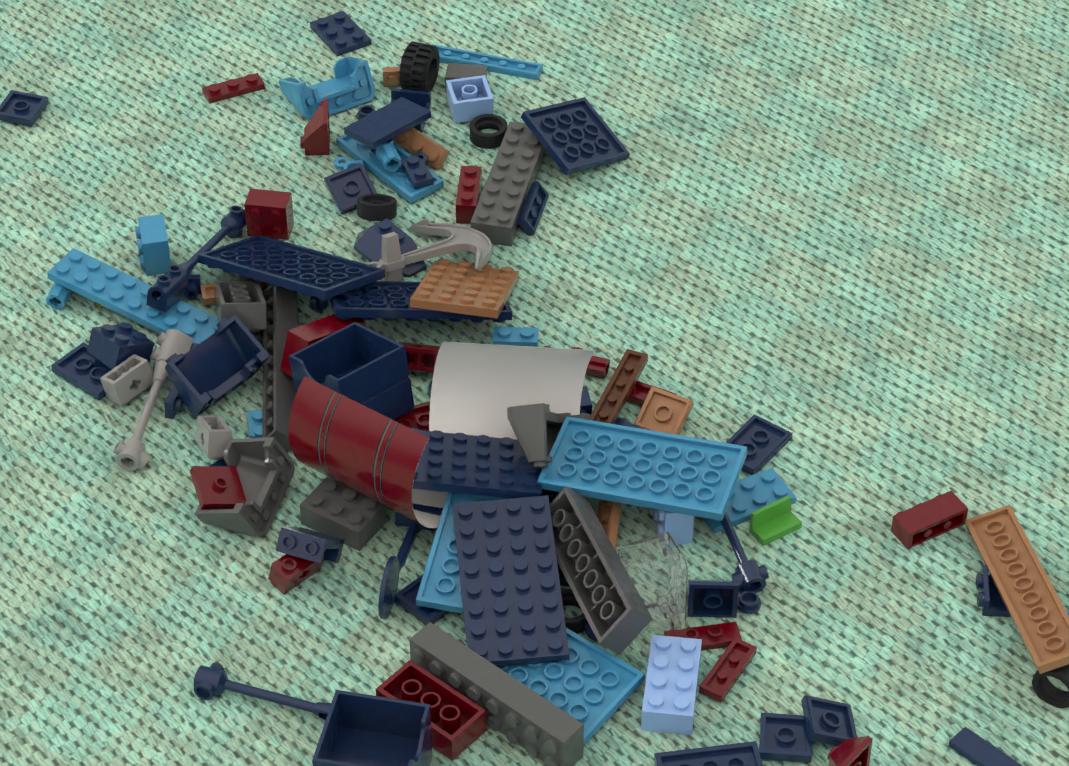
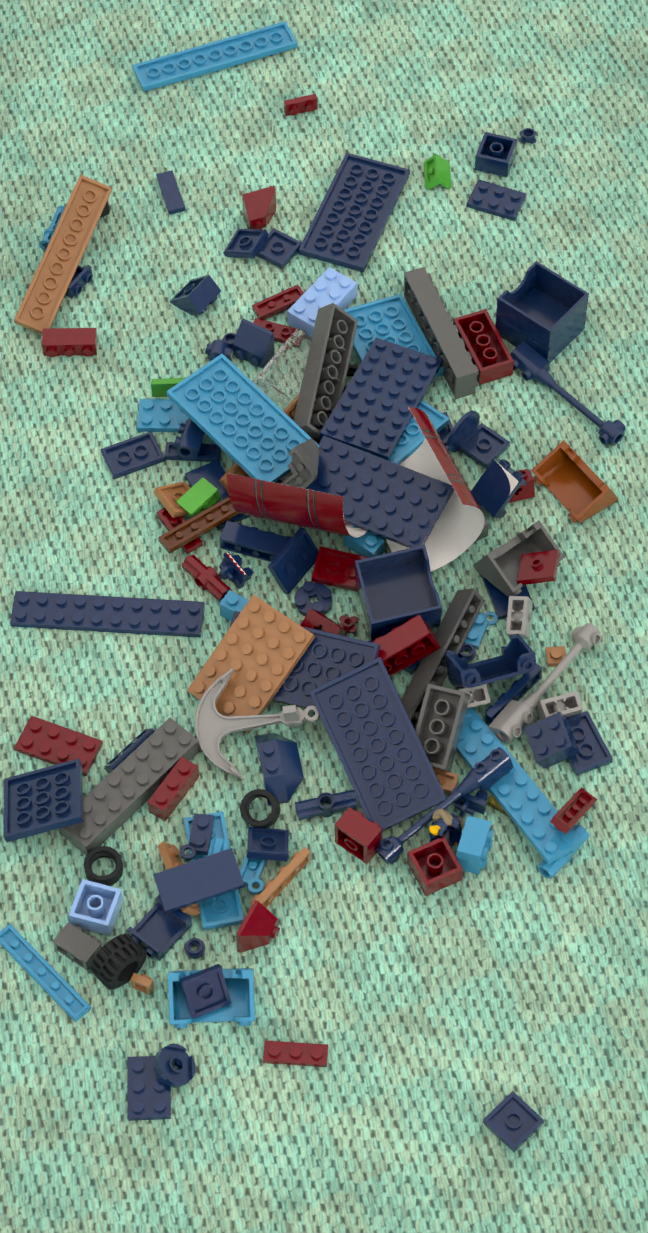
camera: 150 degrees left, 15 degrees up
(67, 293) = (573, 811): none -> dark red plate
(158, 436) = (554, 655): none -> medium nougat plate
(187, 223) = (434, 866): none -> dark red brick
(187, 245) = (446, 825): none -> dark blue hair
(215, 608) = (573, 483): none -> dark orange windscreen
(255, 402) = (466, 647): none -> dark blue plate
(320, 232) = (338, 802): none -> dark blue piece
(323, 169) = (284, 877): none -> medium nougat plate
(327, 49) = (165, 1070): none -> dark blue plate
(335, 77) = (205, 991): none -> dark blue plate
(357, 607) = (483, 445): none -> dark blue plate
(604, 194) = (57, 744): none -> dark red plate
(638, 408) = (199, 498): none -> bright green panel
(648, 302) = (107, 614): none -> dark blue plate
(834, 631) = (196, 295): none -> dark blue slope

